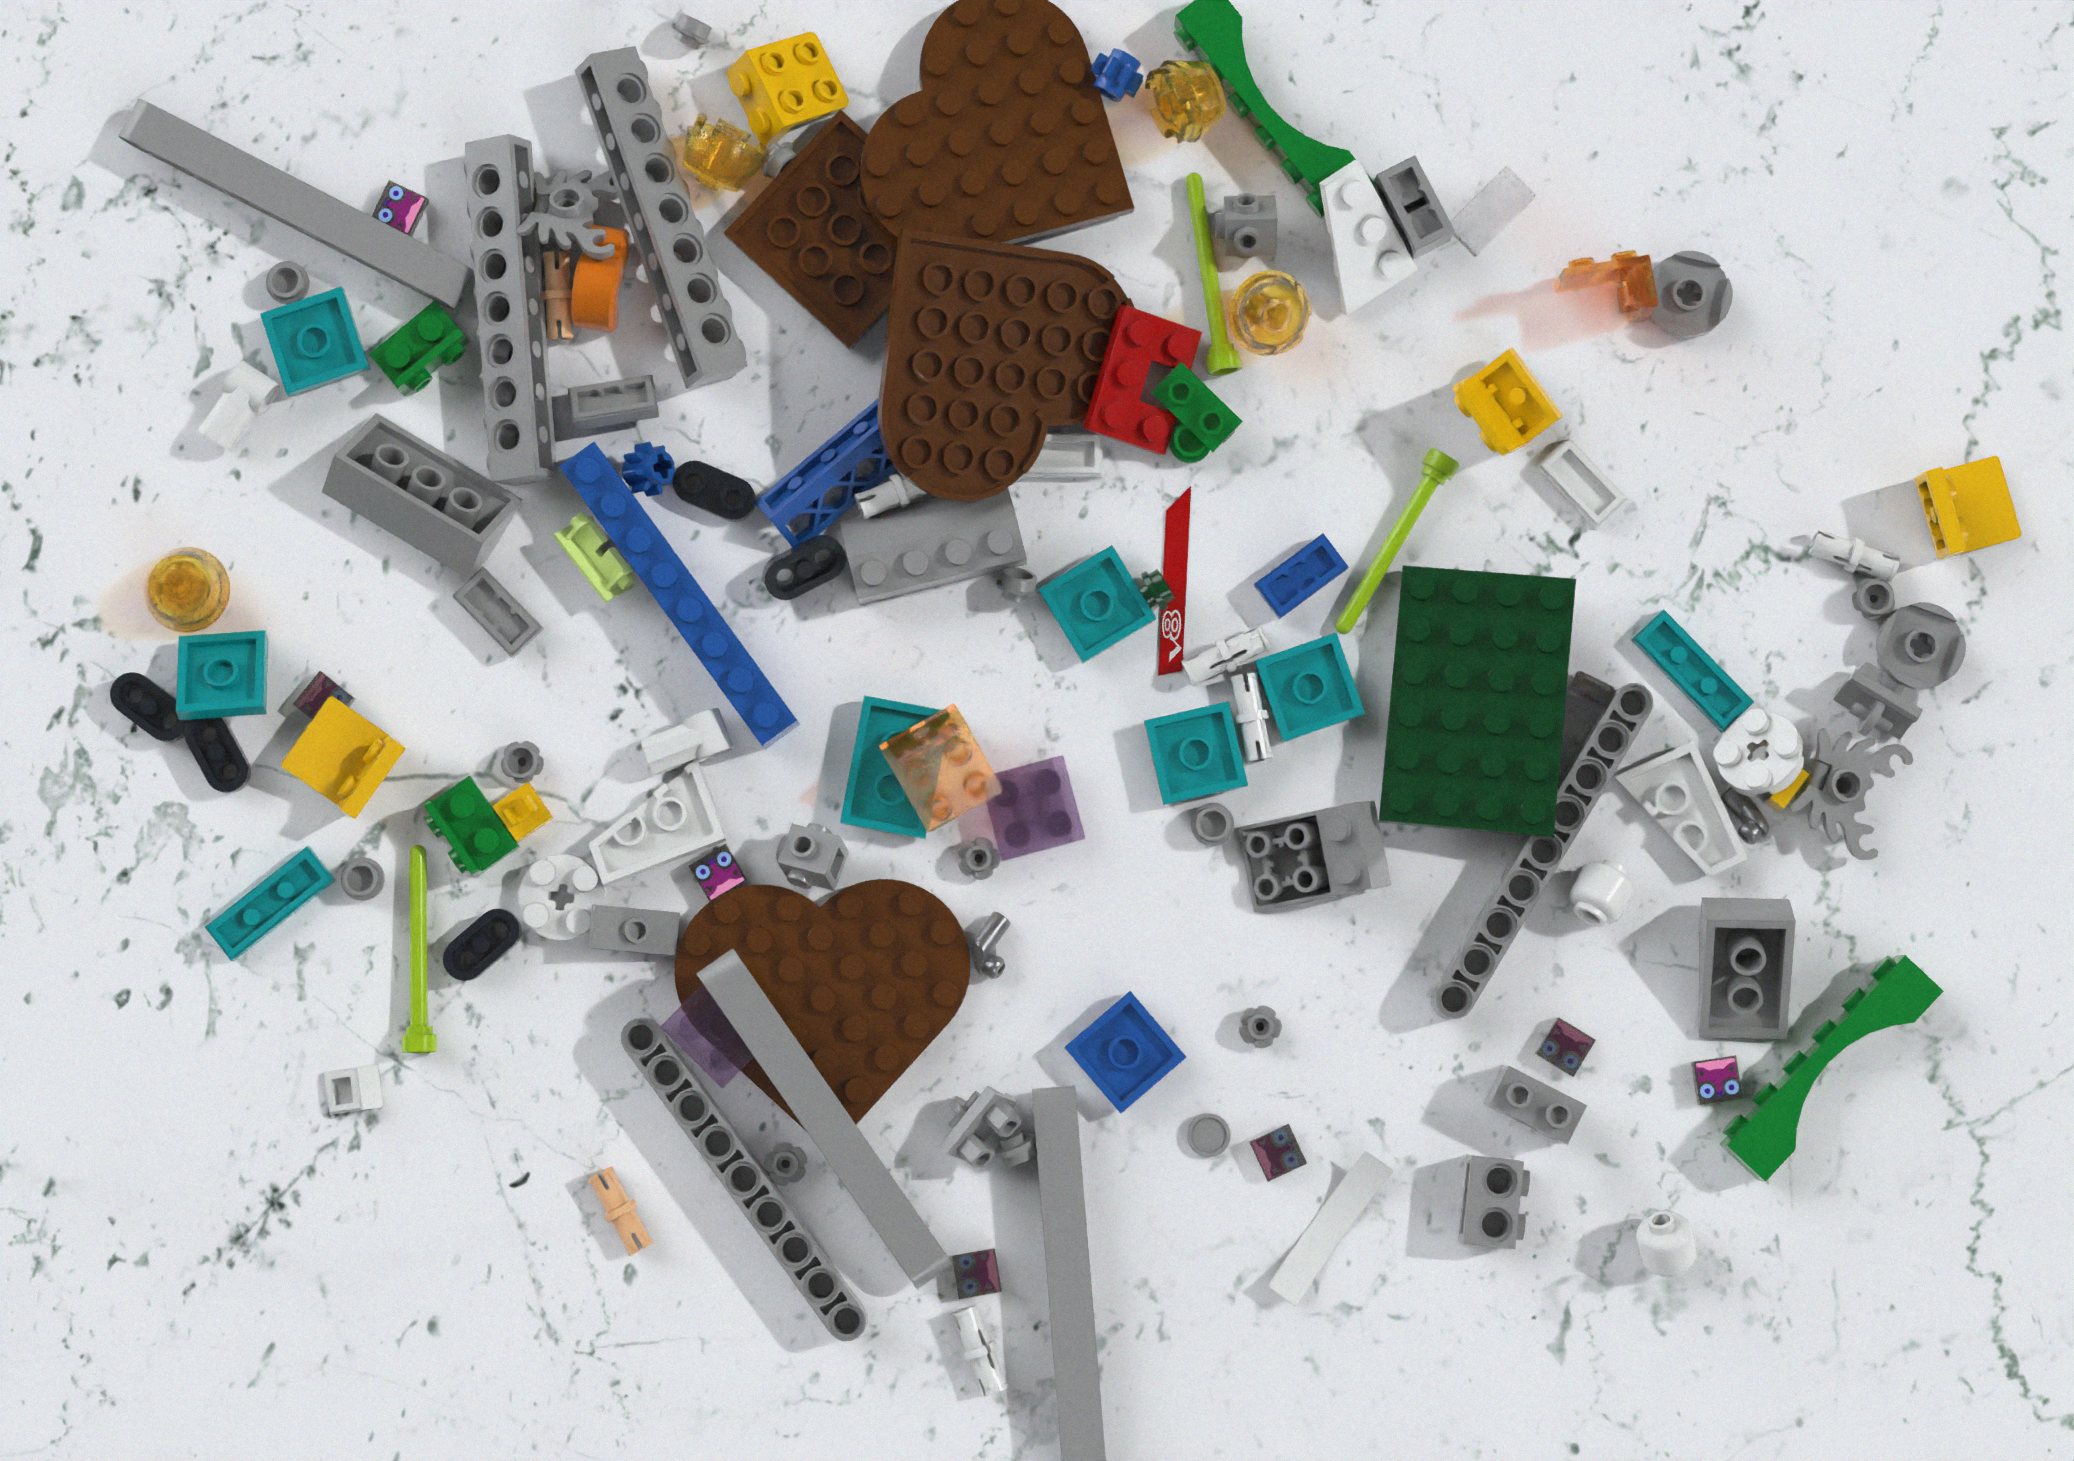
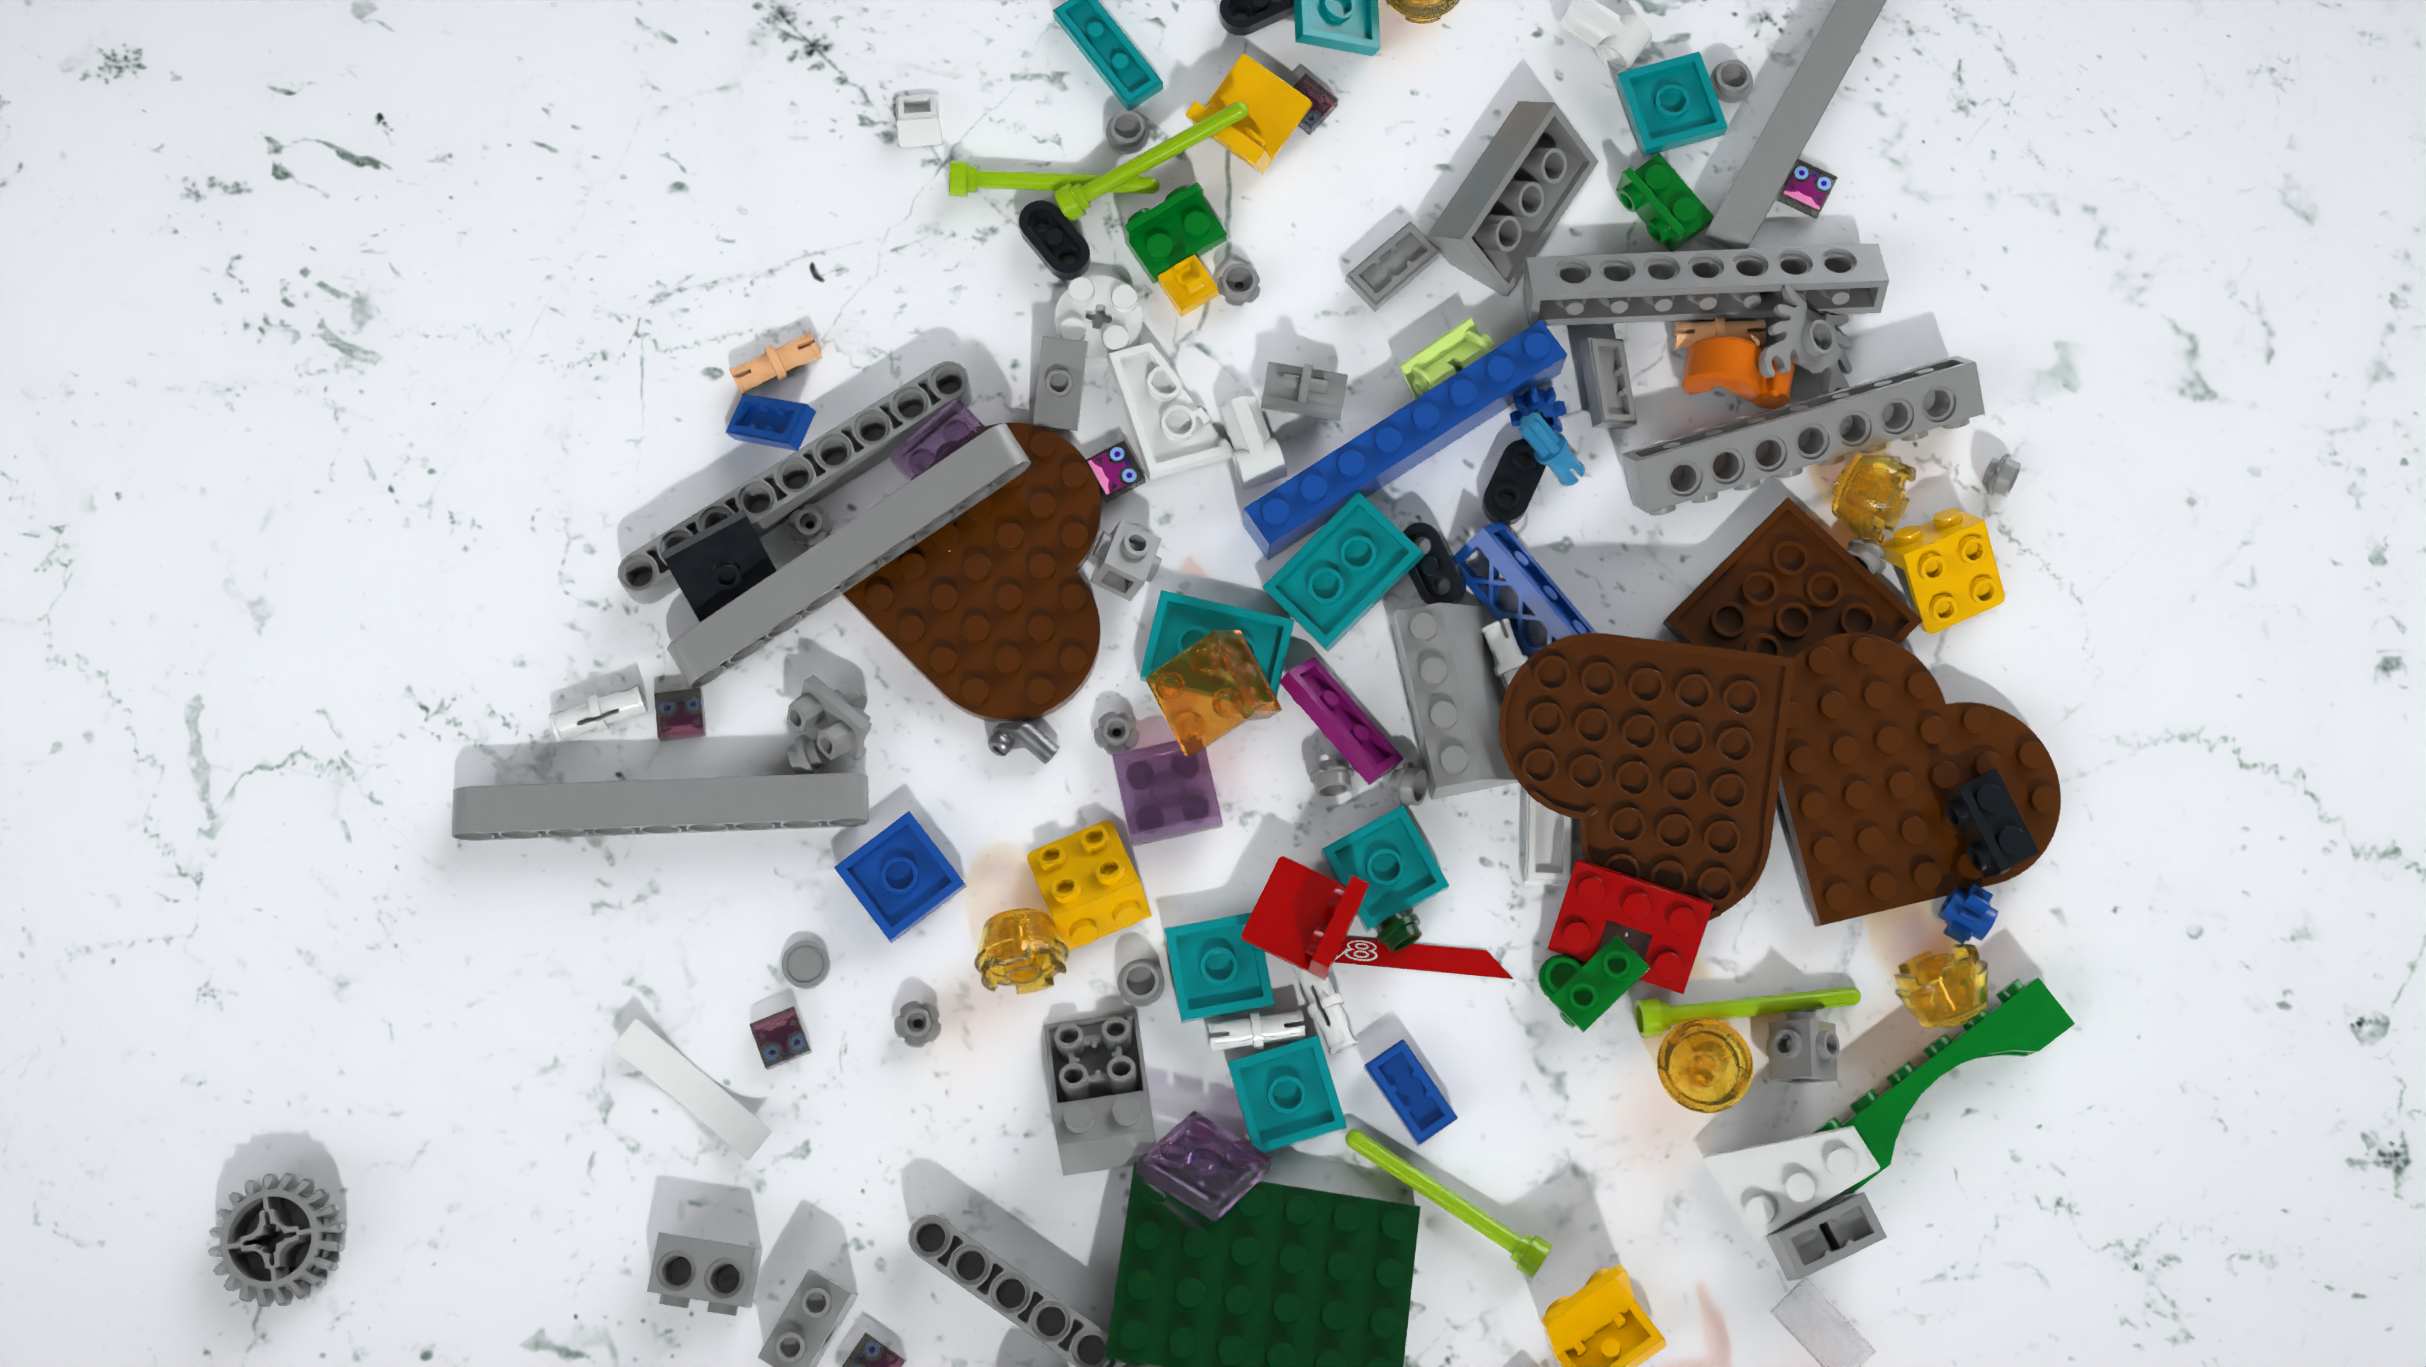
camera: 90 degrees right, 10 degrees down
(438, 924) = (1078, 198): none -> lime piece
(635, 693) = (1304, 390): none -> light grey hips
(686, 1208) = (770, 422): none -> blue plate
(687, 456) = (1550, 448): none -> dark azure axle
(815, 650) = (1343, 571): none -> teal plate
(839, 1241) = (719, 564): none -> black plate
(959, 648) = (1341, 720): none -> magenta plate
(1013, 656) = (1331, 778): none -> light grey plate
(1036, 54) = (1989, 824): none -> black bracket
(1123, 877) = (1089, 884): none -> yellow bracket
(1150, 675) = (1304, 916): none -> red bracket
(1191, 934) = (1020, 951): none -> clear yellow cone
(1380, 757) = (1204, 1165): none -> clear purple plate

